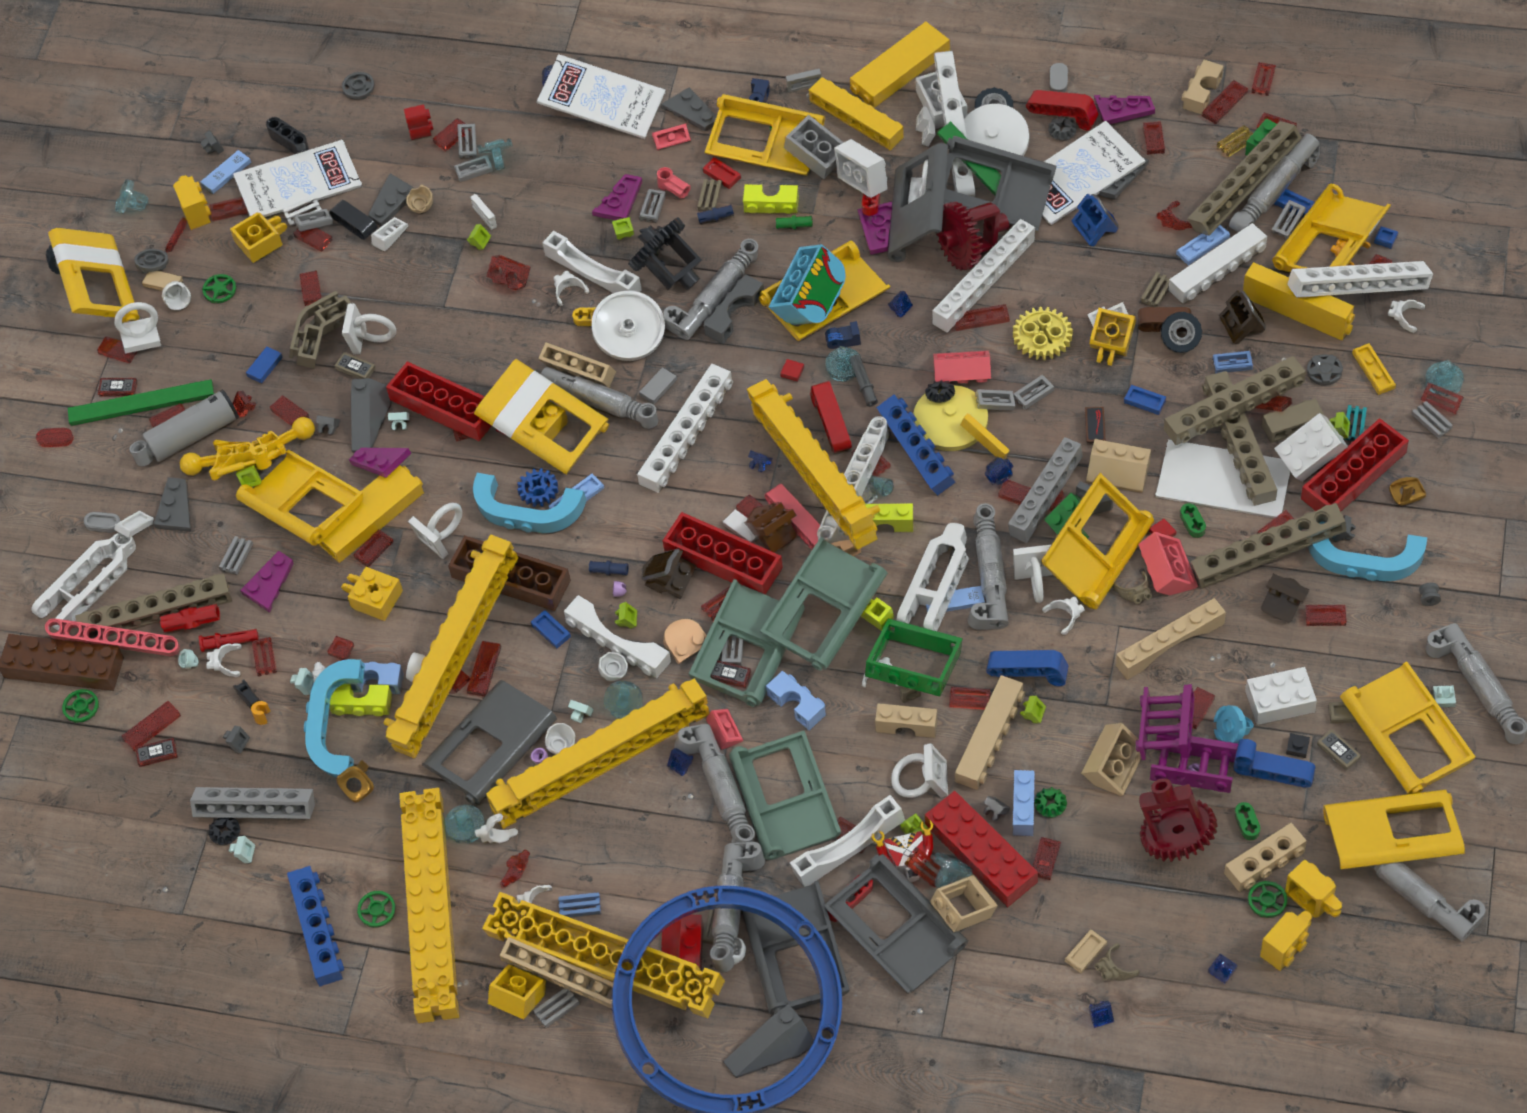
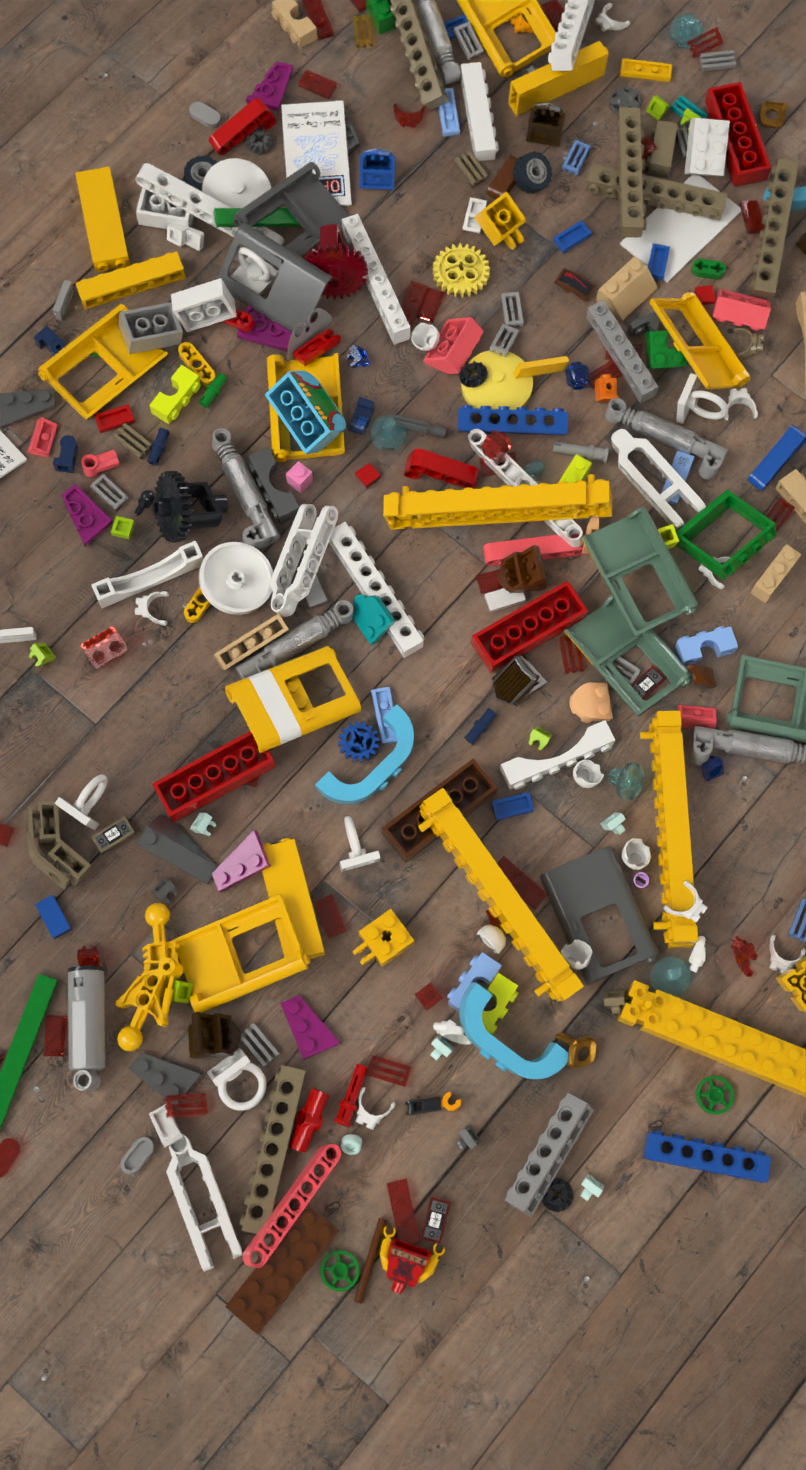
camera: 70 degrees left, 15 degrees up
(99, 723) = (370, 1261): none -> reddish brown bar
(108, 744) = (406, 1262): none -> torso
(152, 534) = (183, 1113): none -> clear red tile
(201, 541) = (230, 1069): none -> white tile
(222, 514) = (212, 1035): none -> dark brown piece
(287, 410) = (125, 919): clear red tile -> none
(415, 784) = (615, 1000): none -> dark tan tile
(436, 734) = (577, 954): none -> white hair
(523, 791) = (697, 907): none -> white helmet
(619, 589) = (507, 730): lavender hinge -> none
(654, 437) = (372, 617): none -> teal plate
(668, 158) = (68, 455): none -> dark blue leg
(703, 353) = (300, 535): none -> white piece
(753, 321) = (299, 477): none -> bright pink brick
(760, 459) = (445, 547): clear blue tile -> none
(763, 709) = (702, 675): none -> reddish brown slope
(811, 192) = (196, 356): none -> yellow beam
(872, 436) = (496, 445): none -> clear red brick
(887, 269) = (316, 347): none -> red hinge
(902, 260) = (317, 327): none -> light grey piece
(929, 519) = (590, 452): none -> light grey pin
(953, 340) = (425, 337): none -> white hair
(993, 330) = (430, 305): none -> clear red tile
(1000, 504) = (602, 394): none -> orange brick
(1168, 476) = (658, 260): none -> blue tile
(1336, 395) = (657, 107): none -> lime tile

